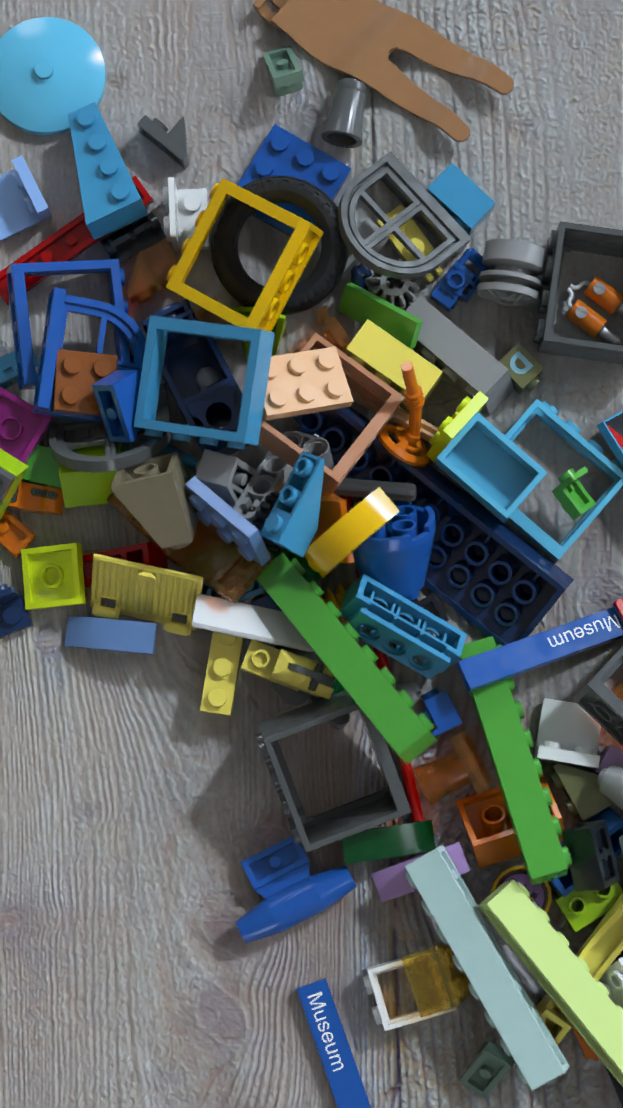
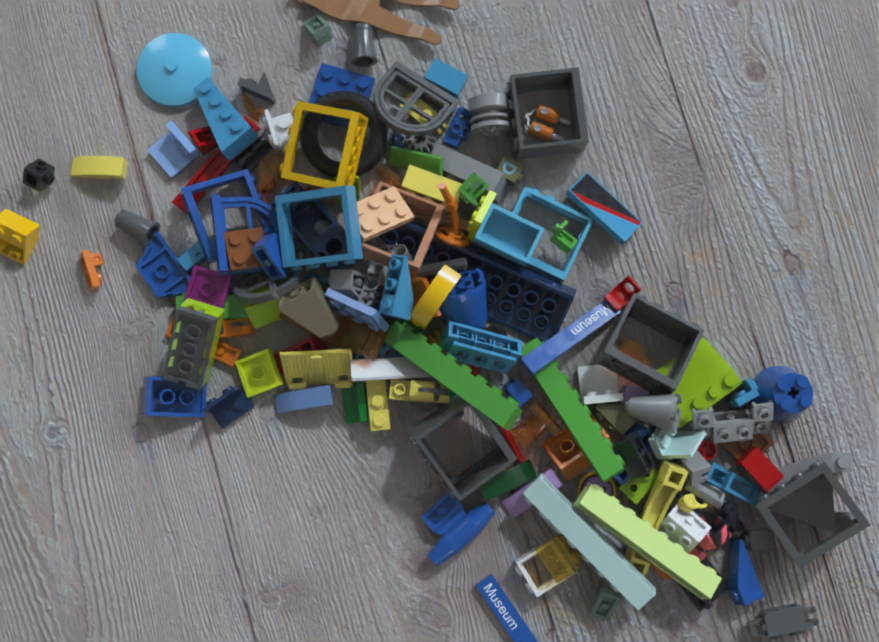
camera: 20 degrees left, 0 degrees up
(63, 196) = (203, 139): none -> red slope
(146, 165) = (253, 113): none -> clear orange bar
(187, 663) = (355, 403): none -> green panel
(454, 382) = (473, 188): none -> bright green bracket

